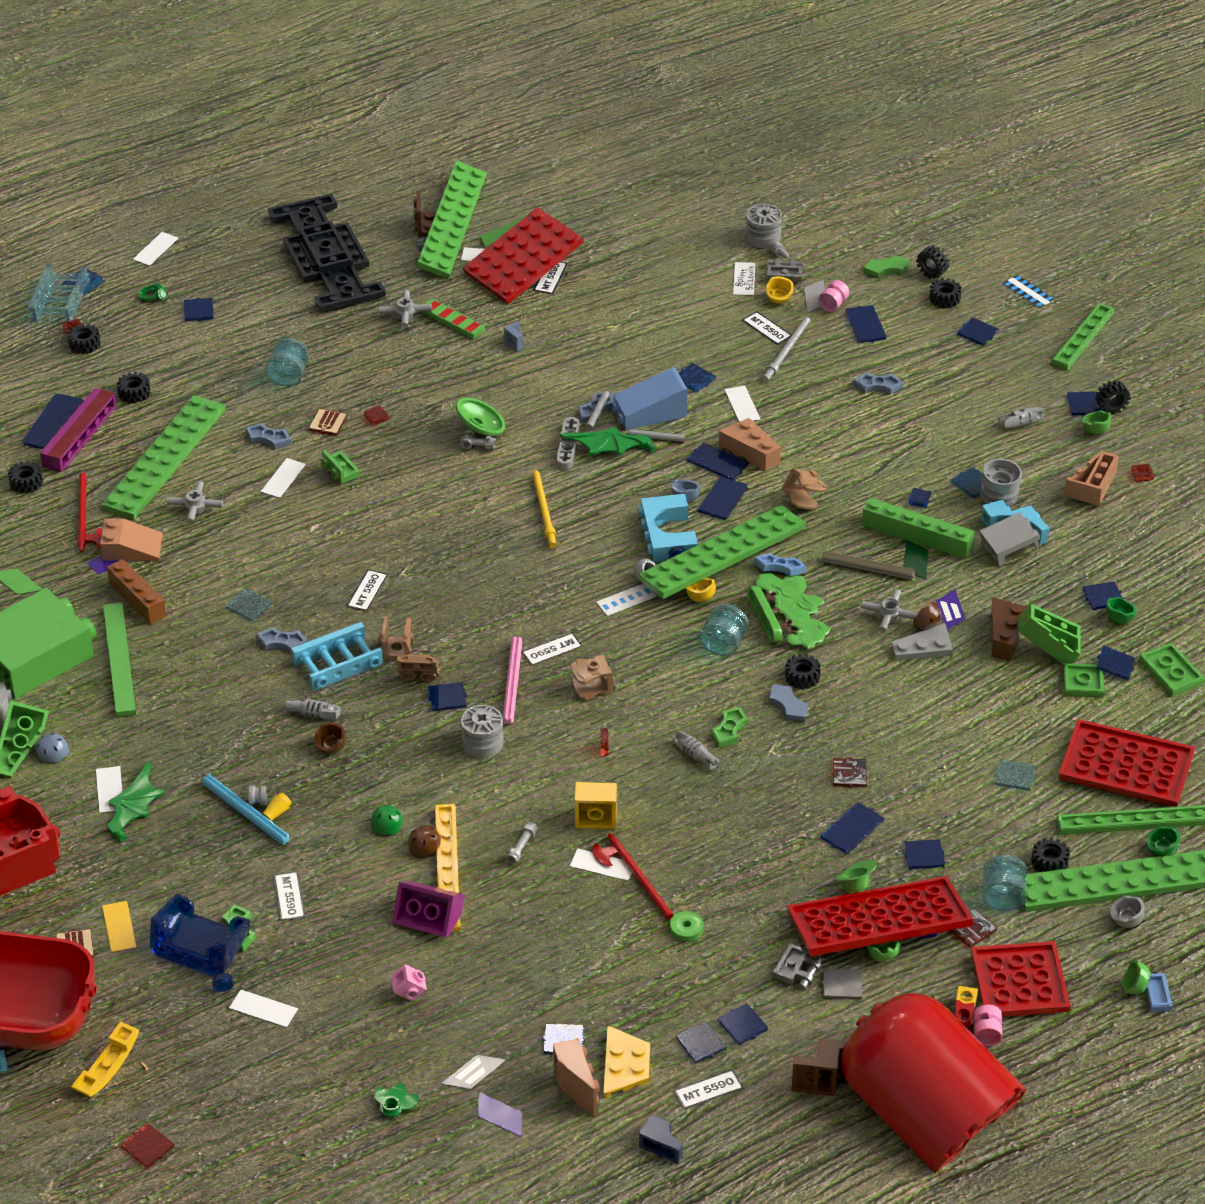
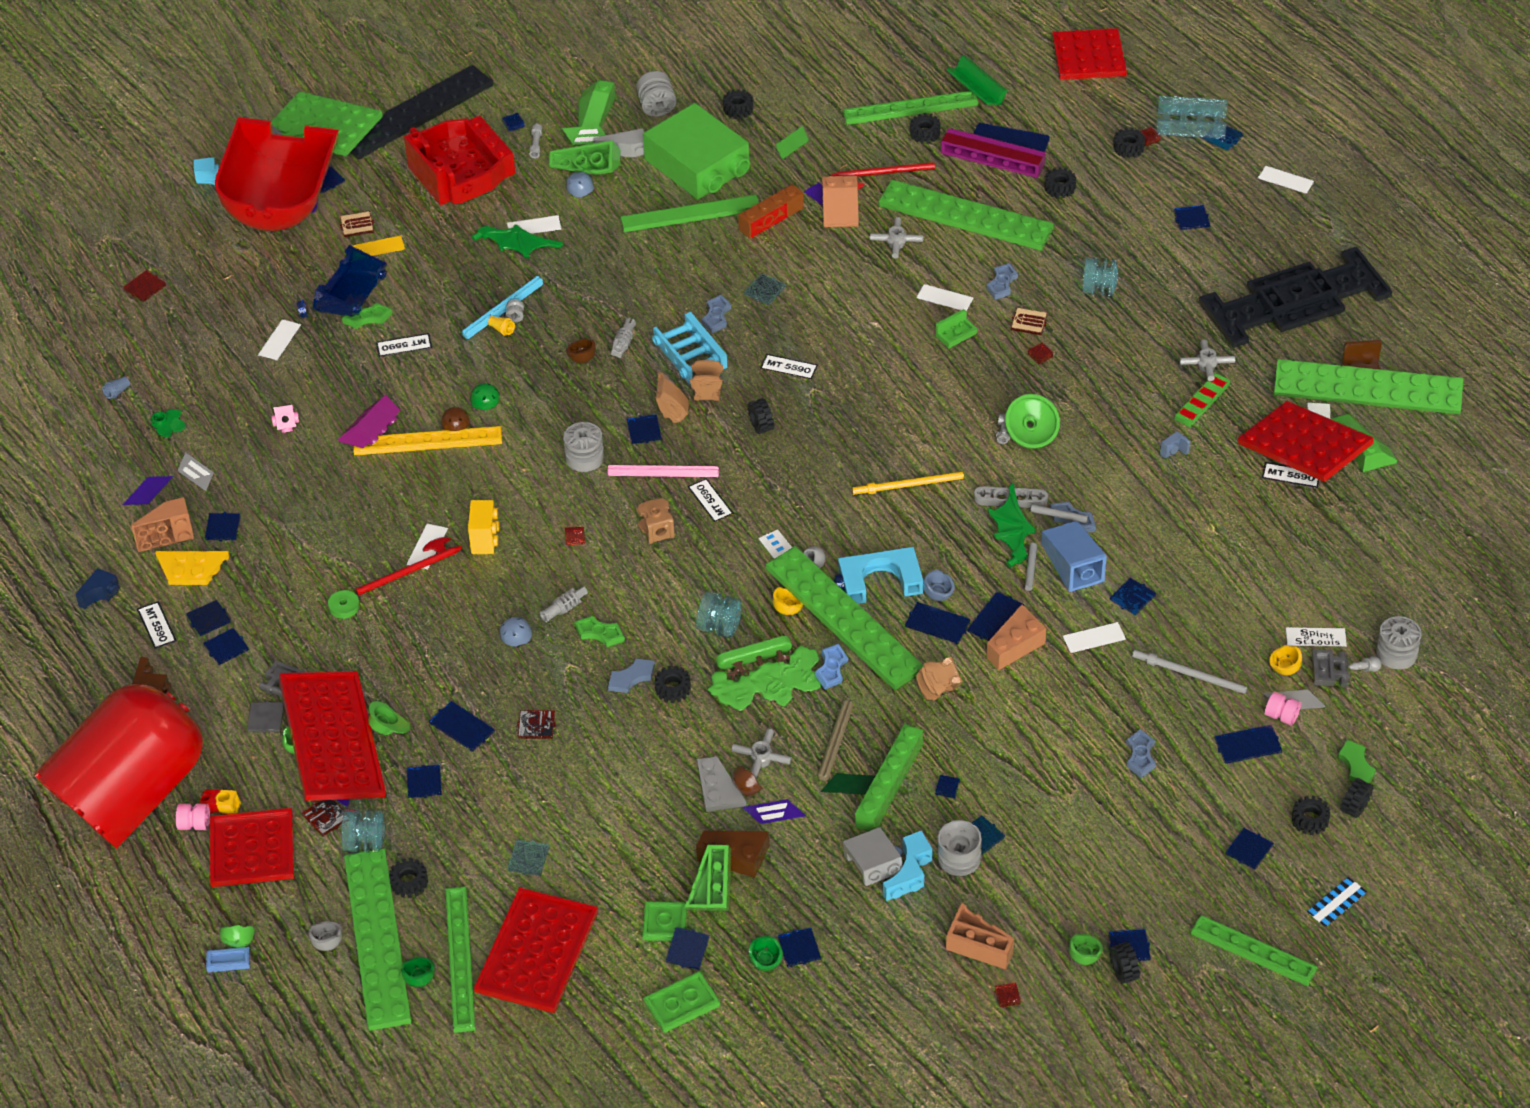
camera: 90 degrees right, 5 degrees up
(108, 1062) = (227, 254): yellow slope -> none
(160, 292) = (1207, 187): green piece -> none
(331, 1153) = (115, 387): none -> sand blue cone
(455, 606) = (760, 415): none -> black tyre
(528, 831) = (438, 482): light grey bar -> none
(730, 783) = (512, 627): none -> sand blue helmet
(767, 327) = (1229, 657): white sticker -> none
(1021, 417) = (1088, 879): light grey hinge -> none

